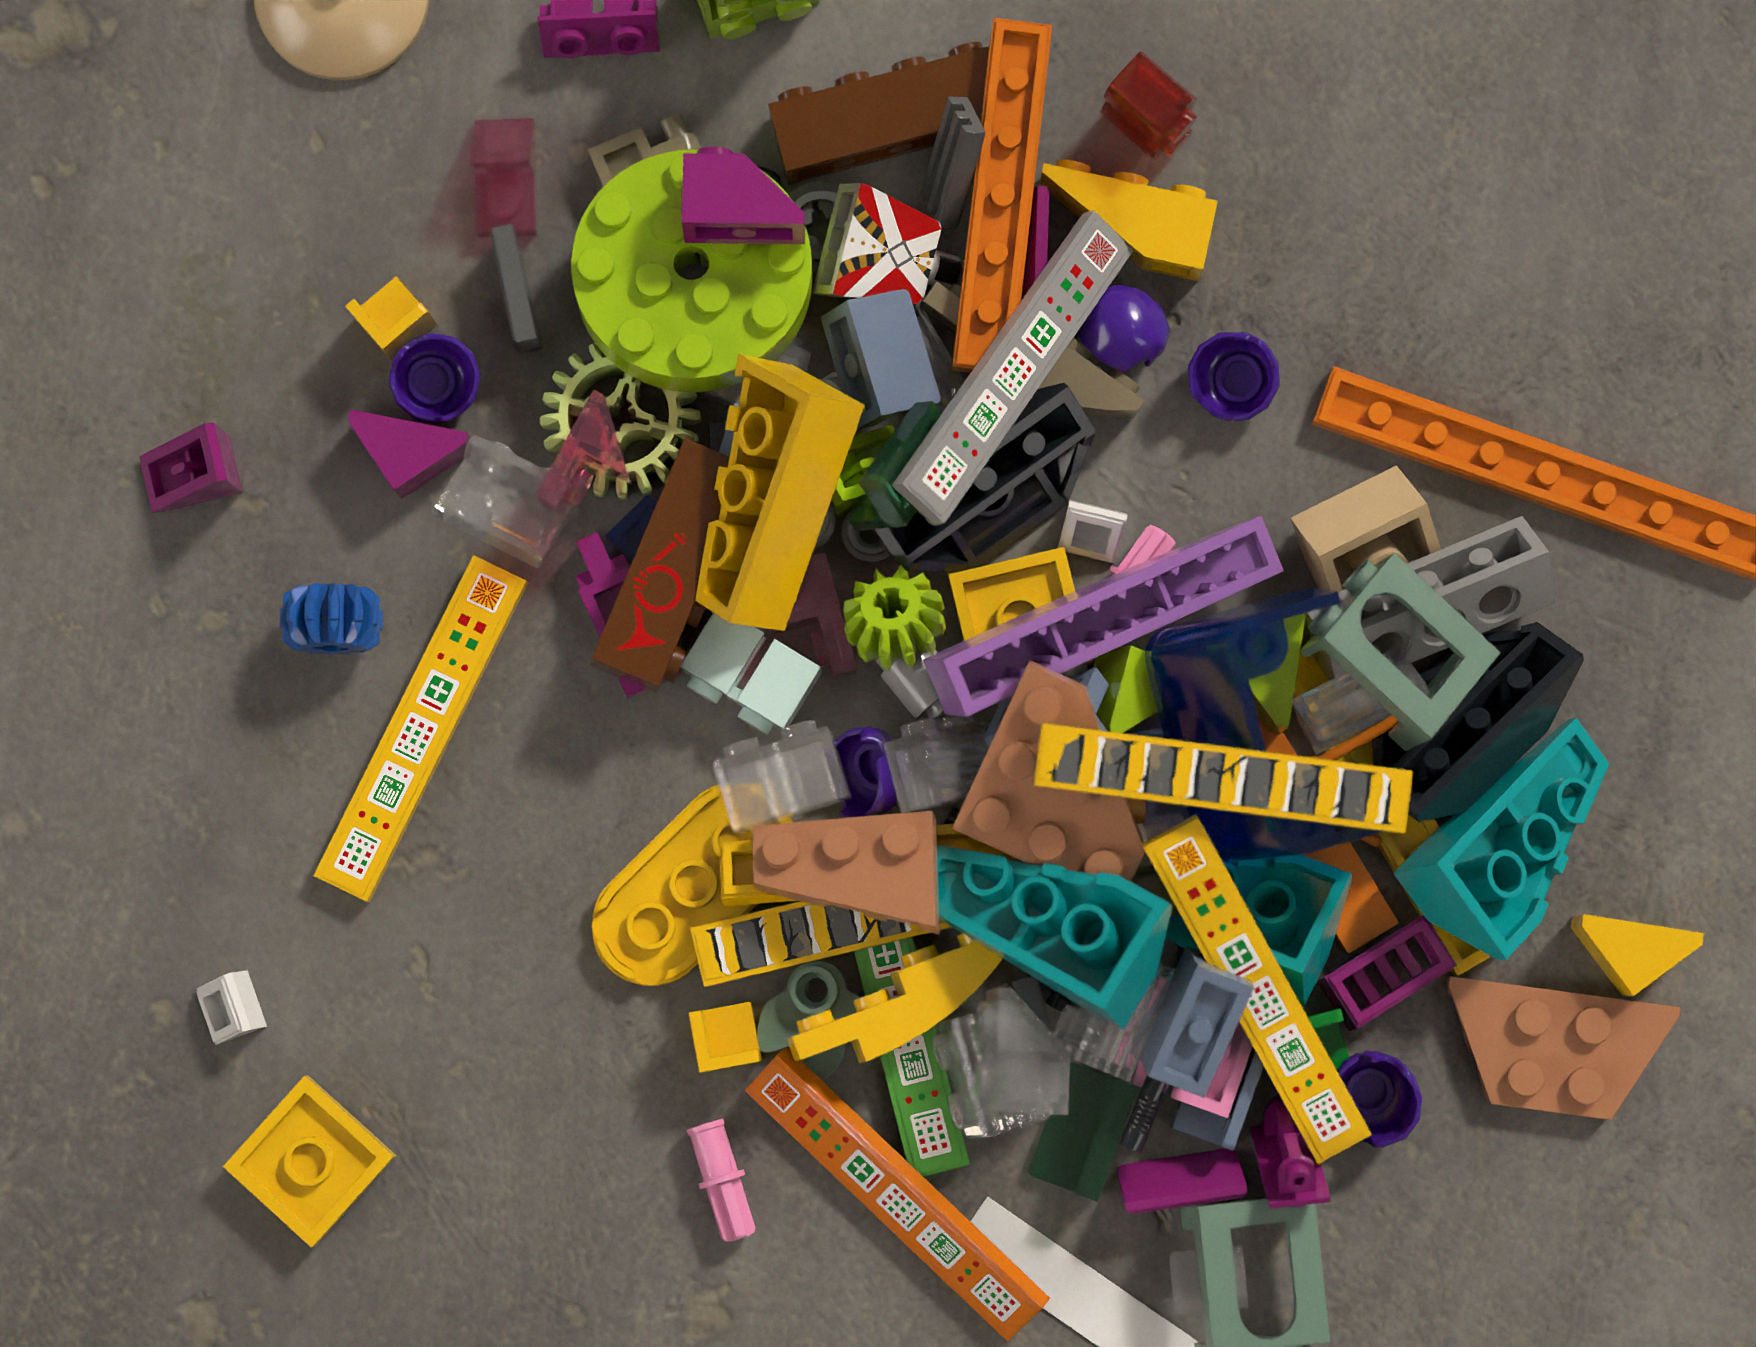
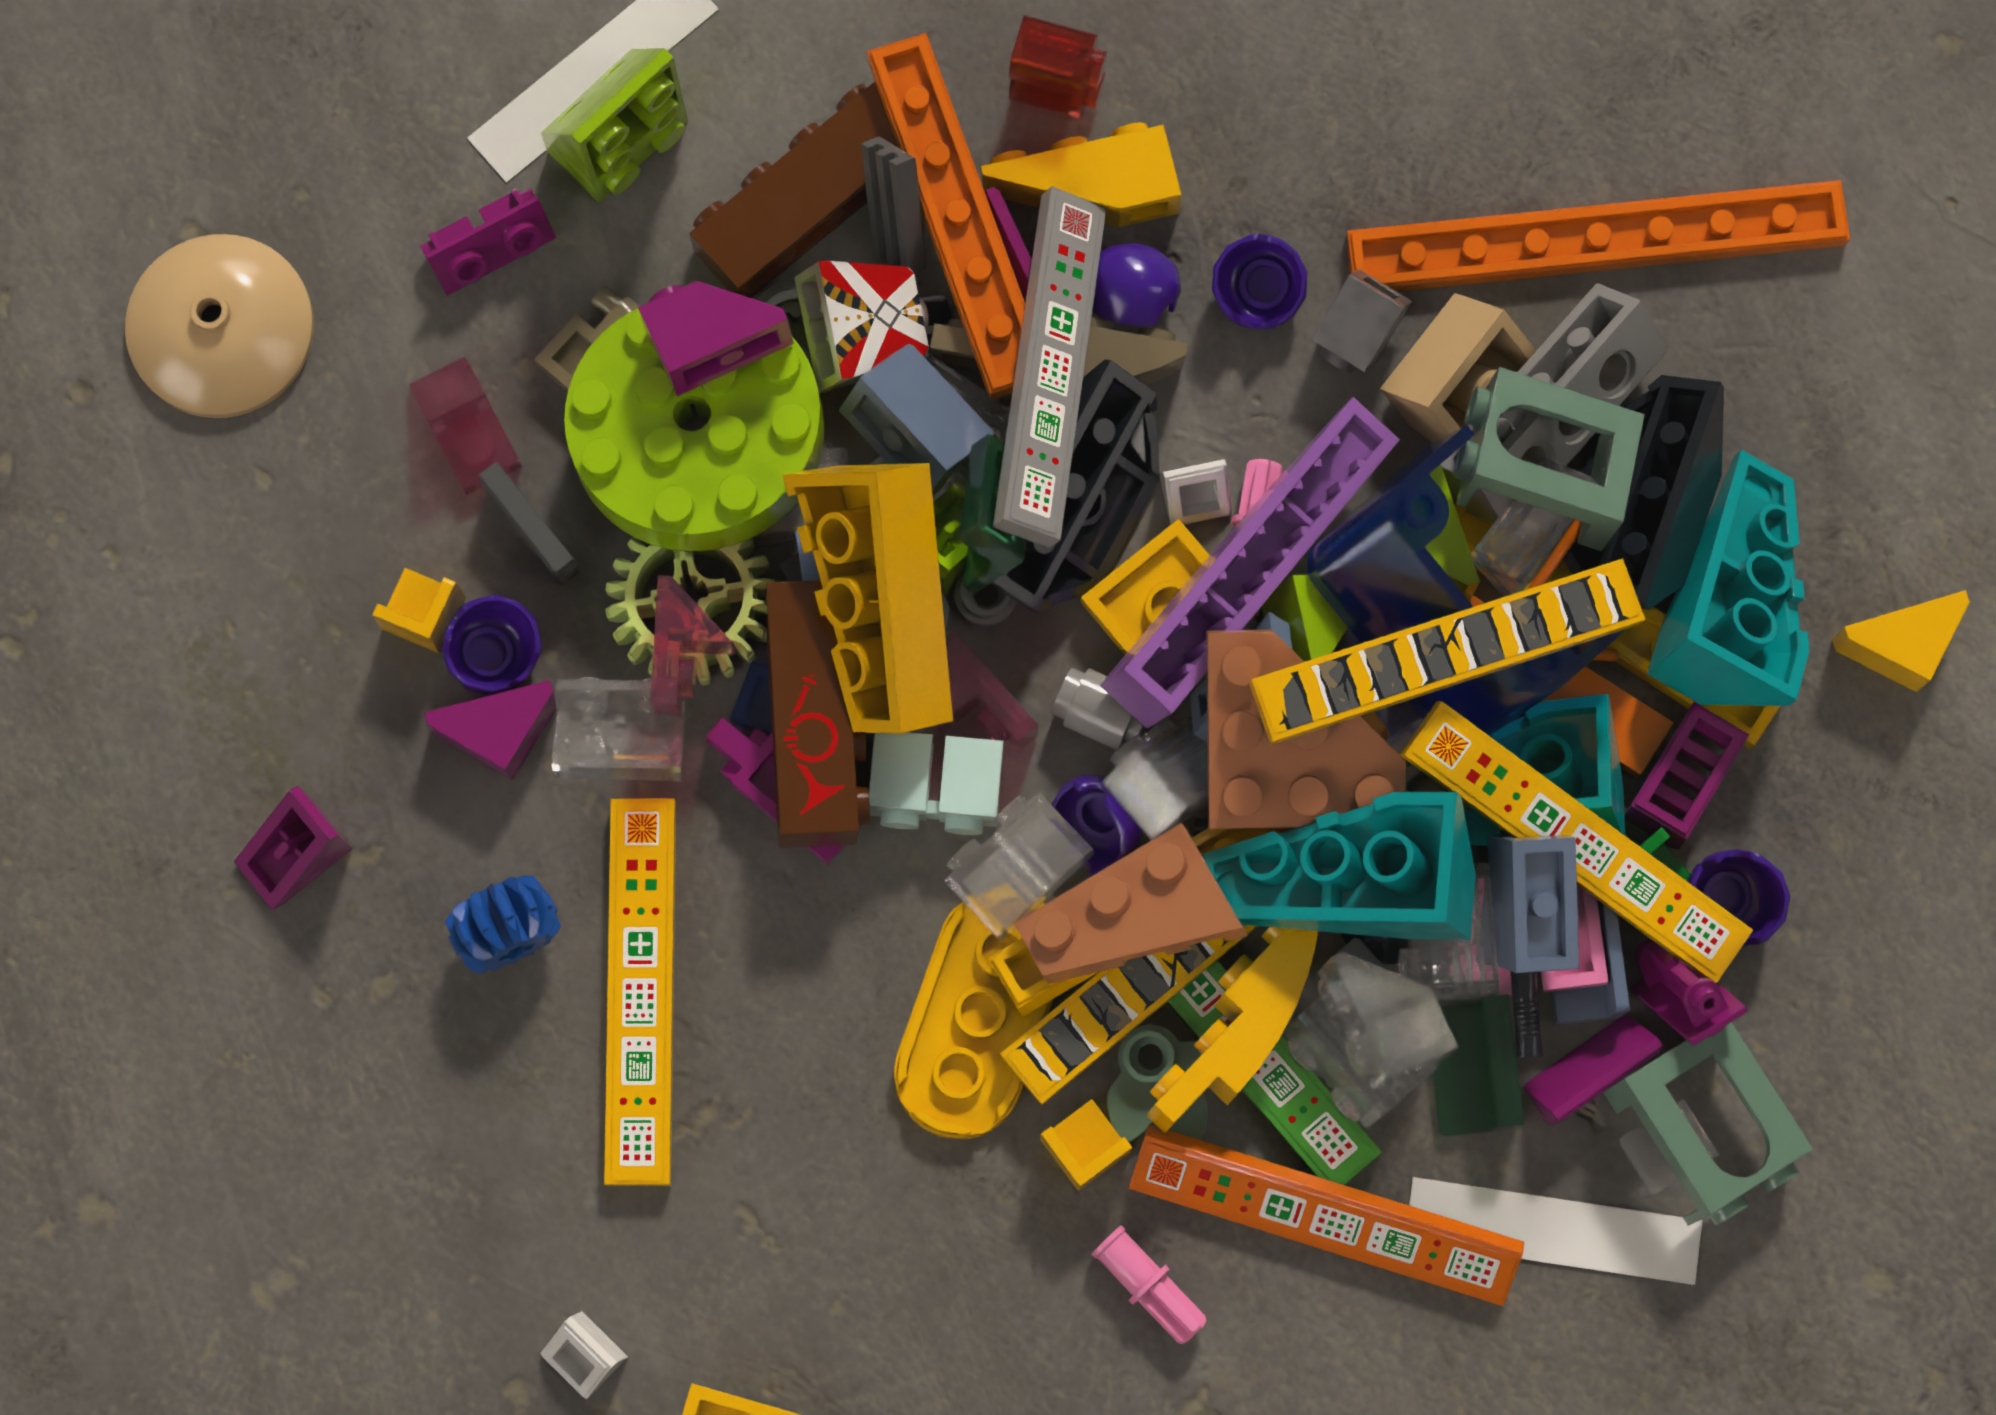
camera: 30 degrees left, 5 degrees down
(894, 618) = (1052, 659): lime gear -> none
(1302, 452) = (1360, 322): none -> flat silver brick
(1557, 1046) = (1880, 767): nougat wing -> none

